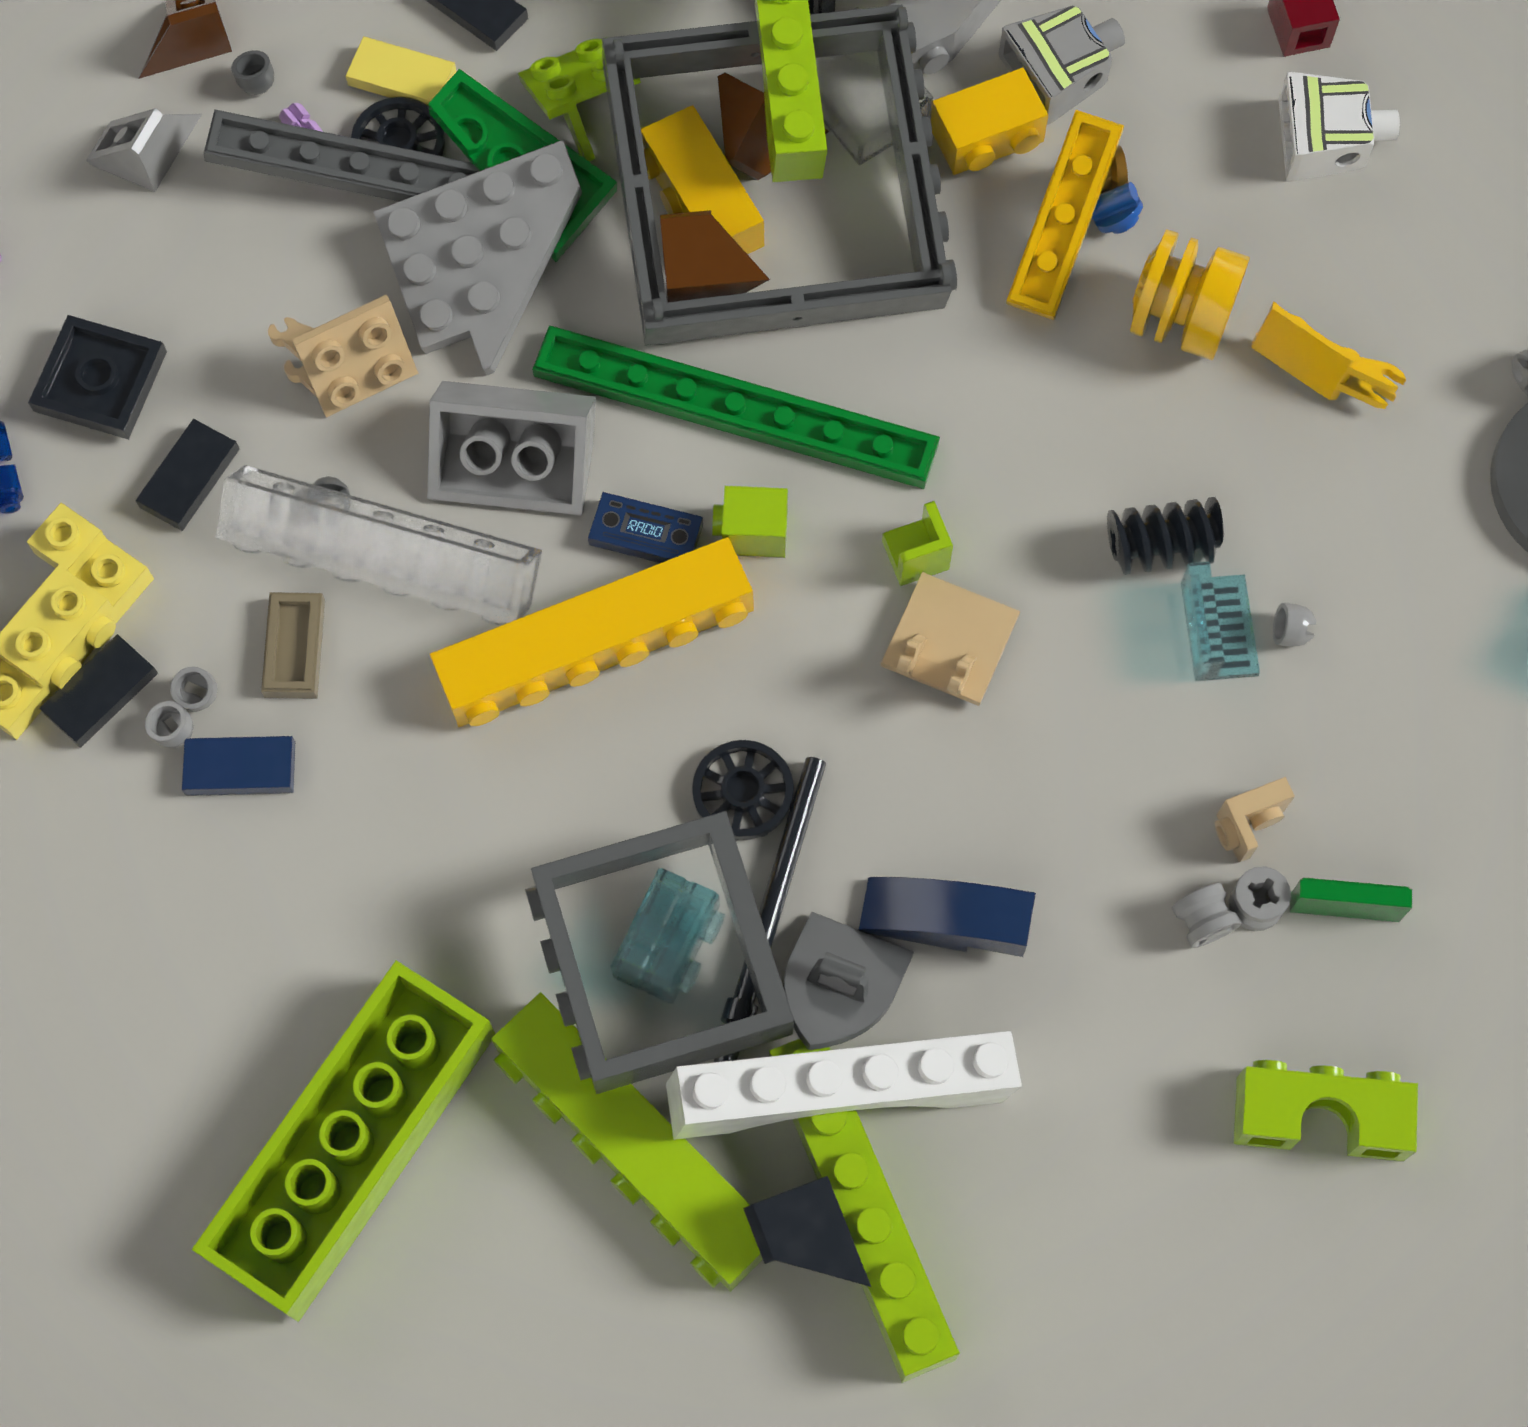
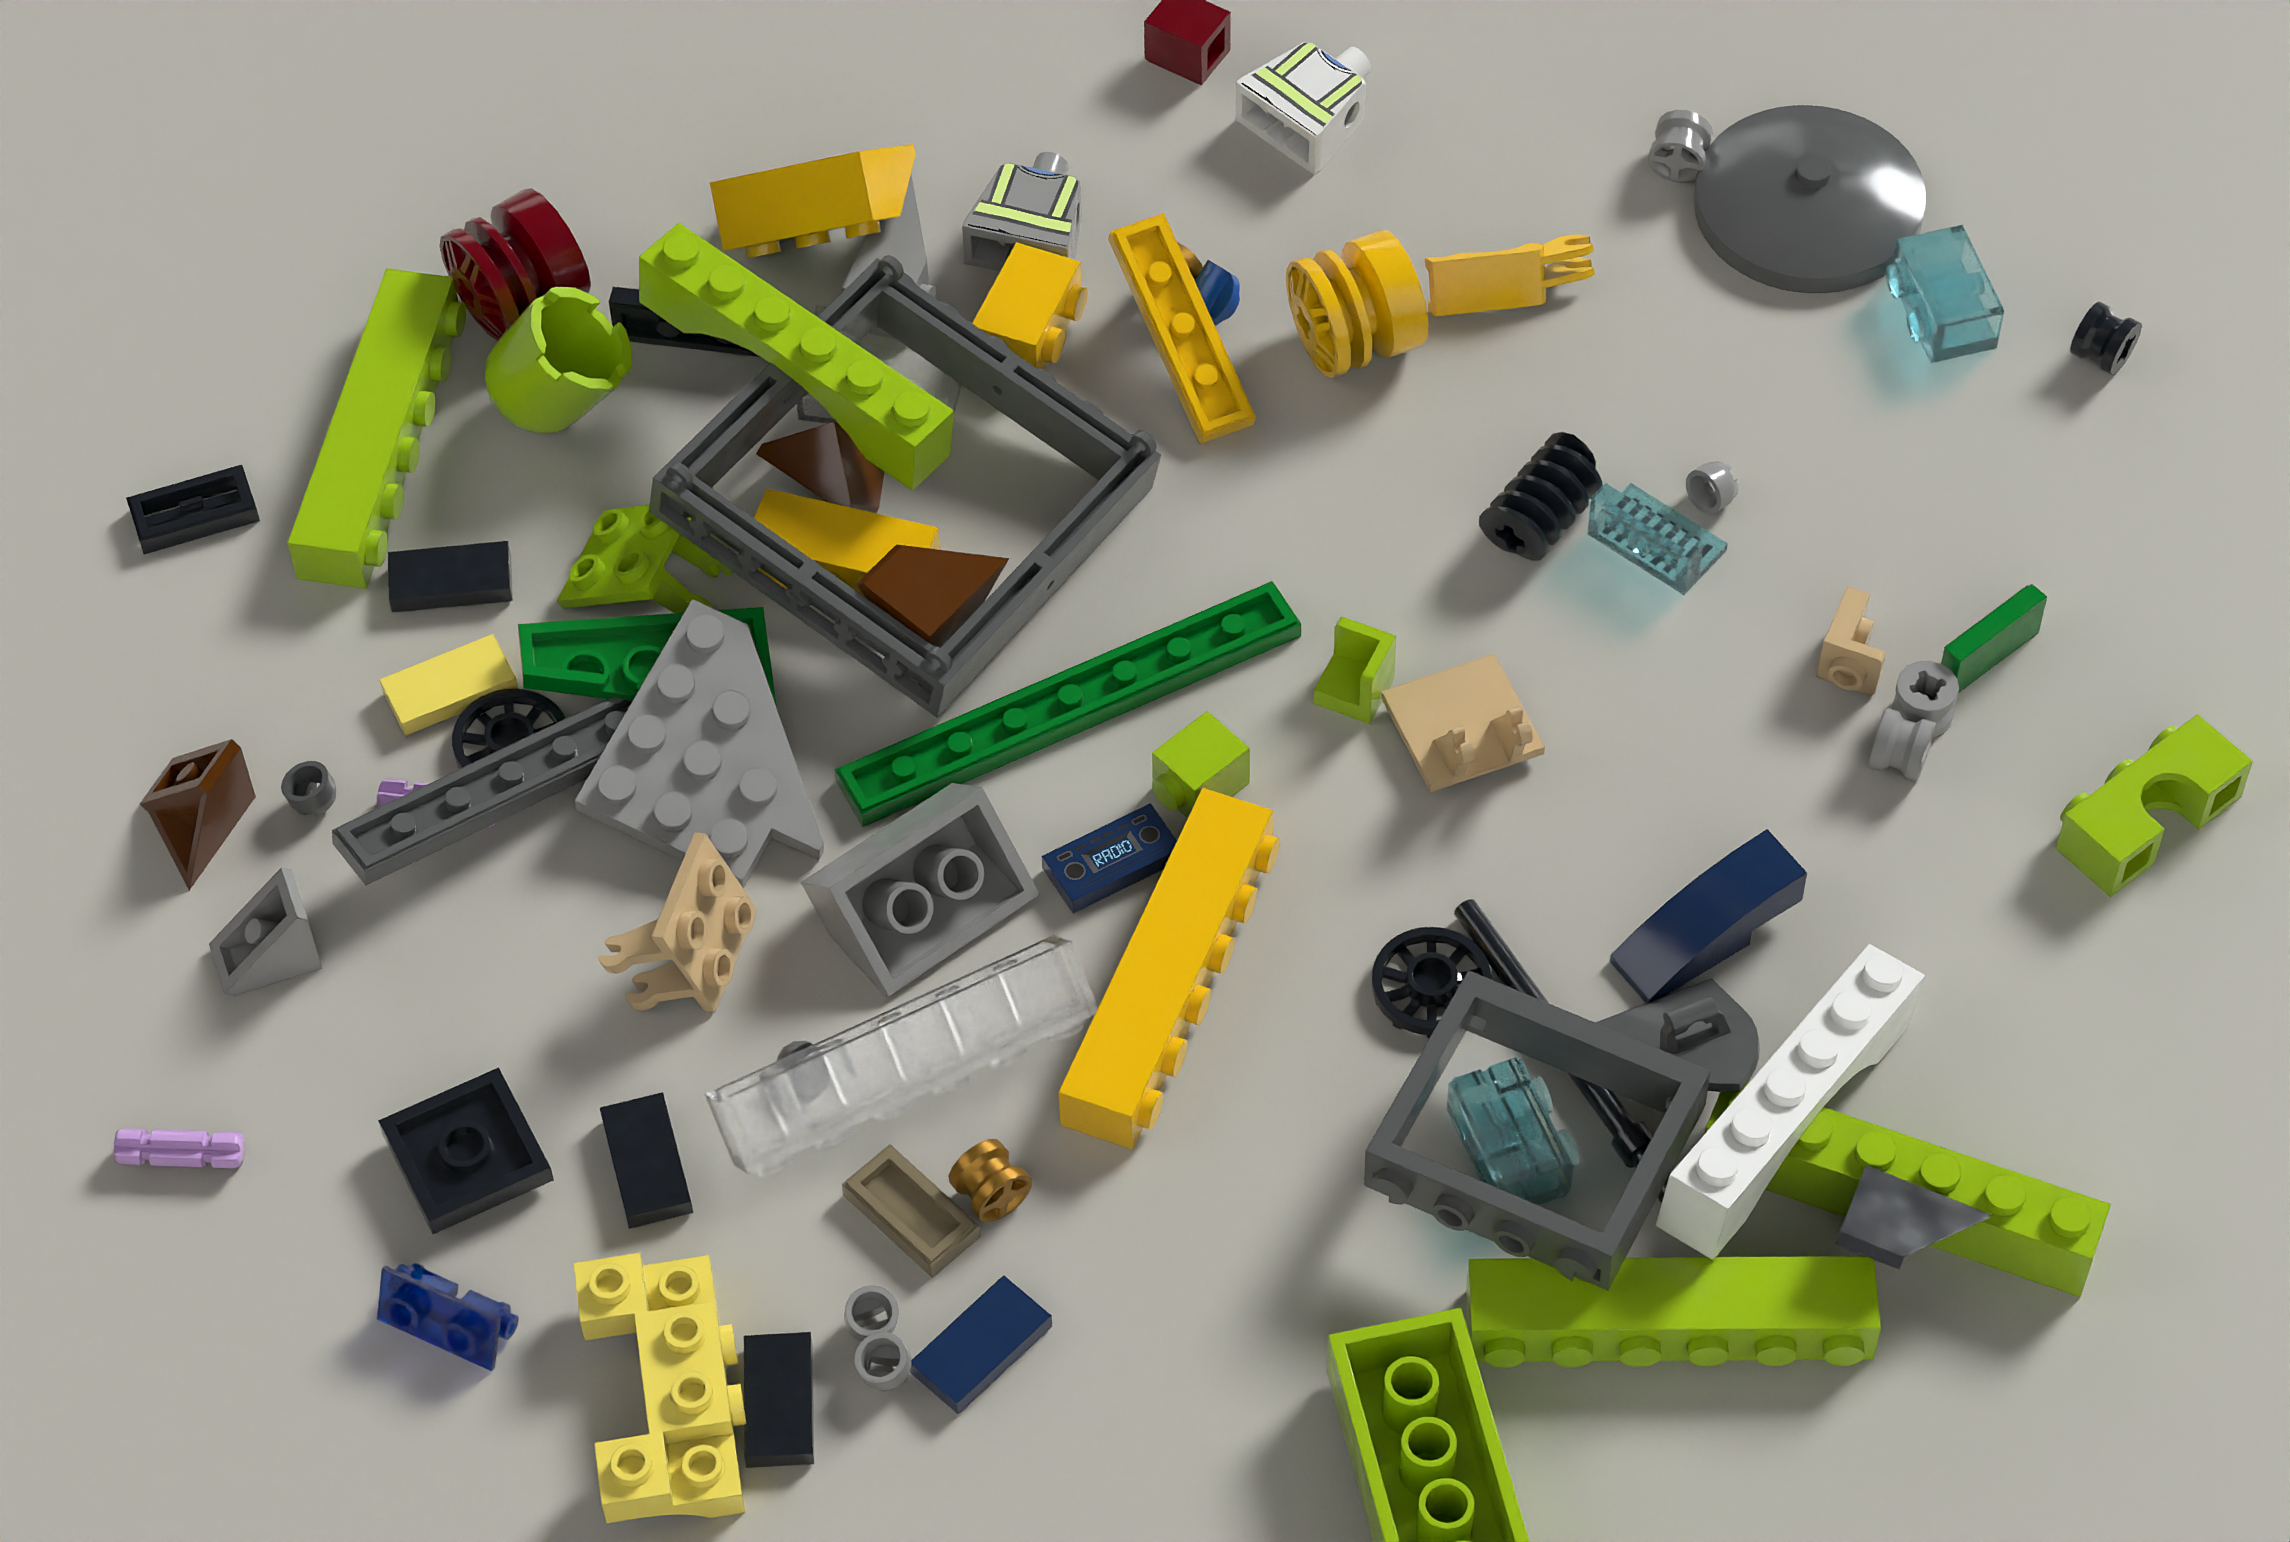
camera: 45 degrees left, 15 degrees down
(346, 670) = (990, 1180): none -> pearl gold wheel

